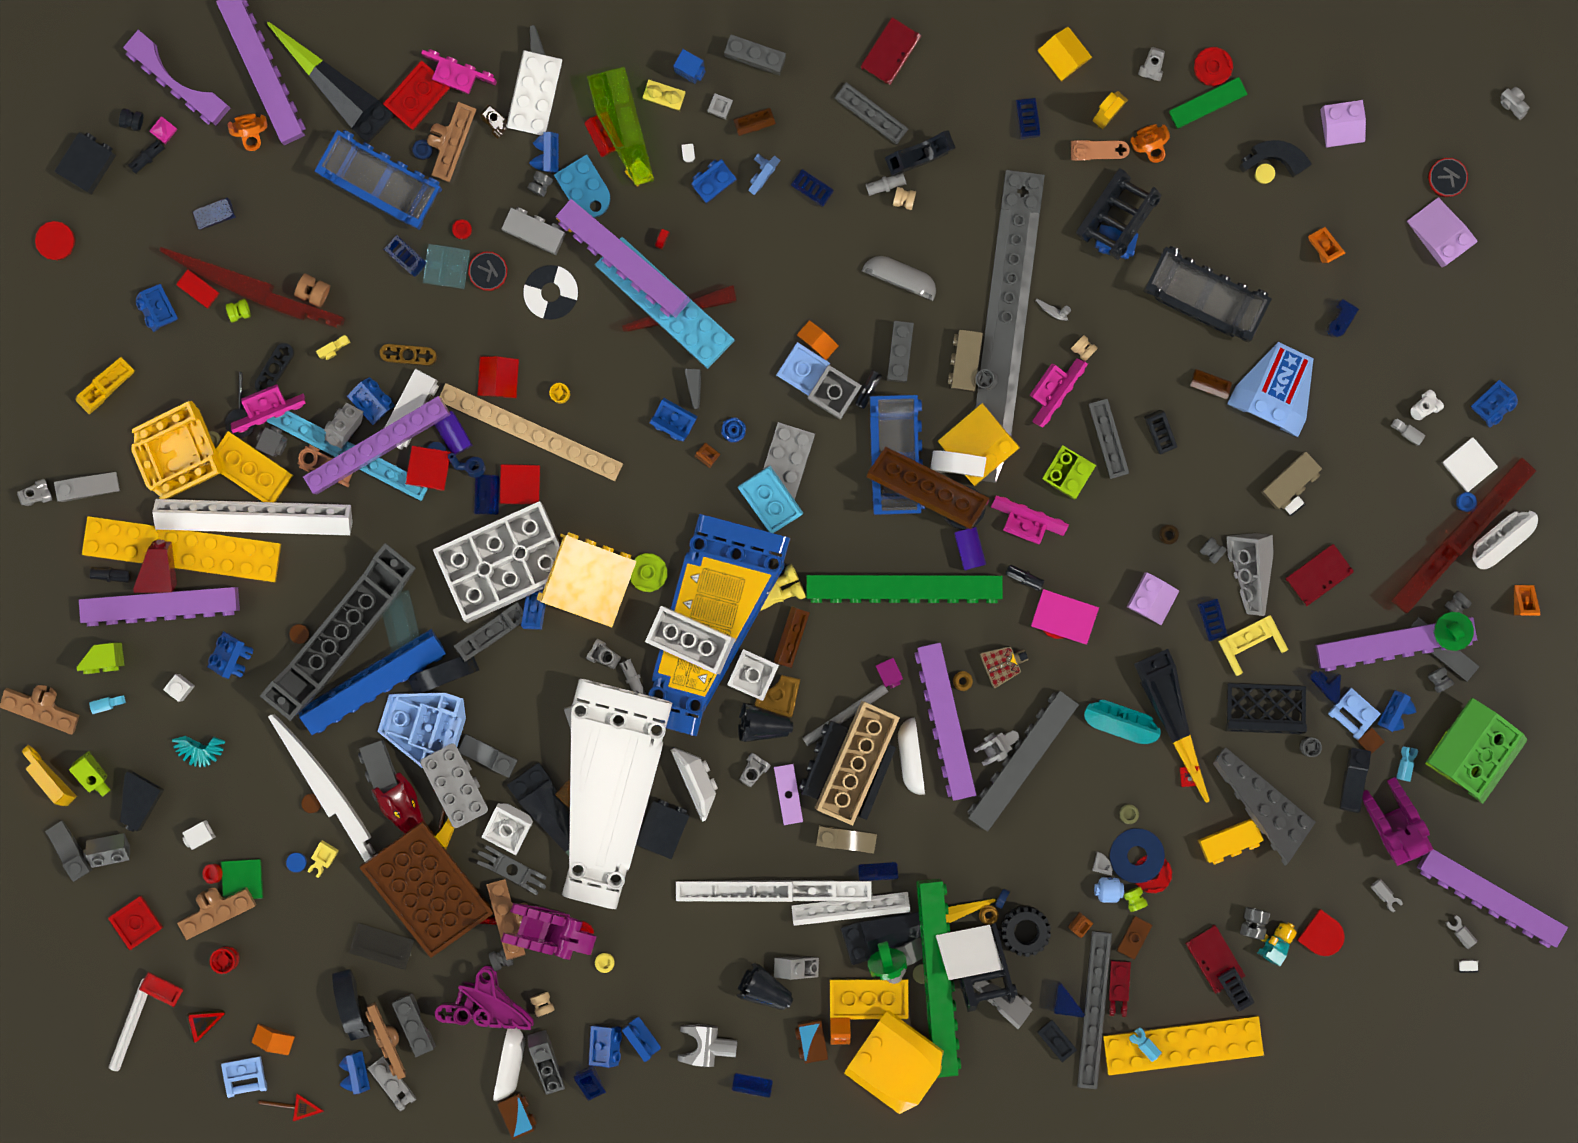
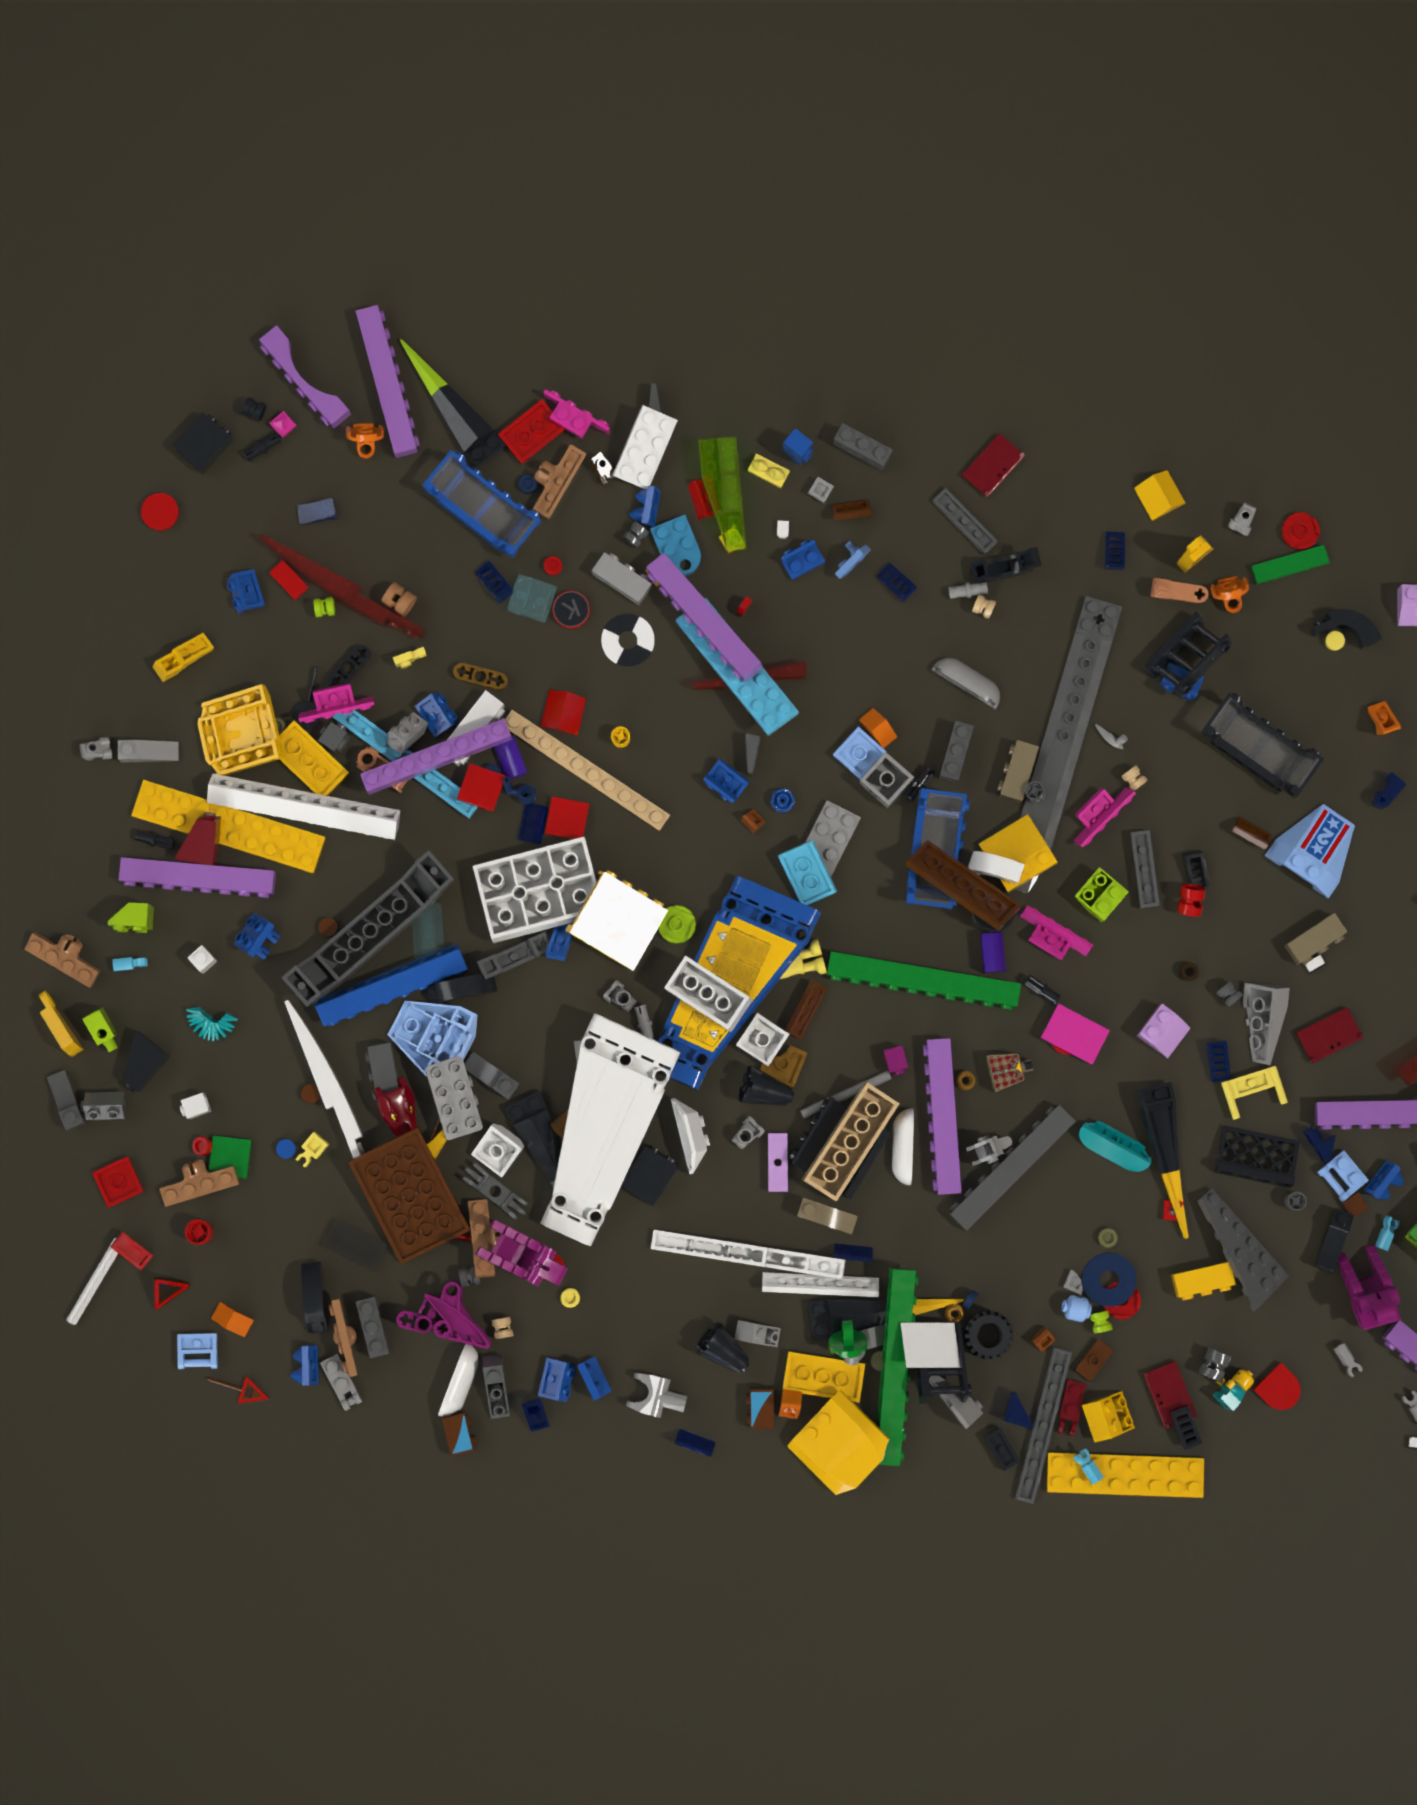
camera: 10 degrees right, 5 degrees down
(1157, 991) = (1108, 1417): none -> yellow slope
(1160, 465) = (1191, 900): none -> red wheel

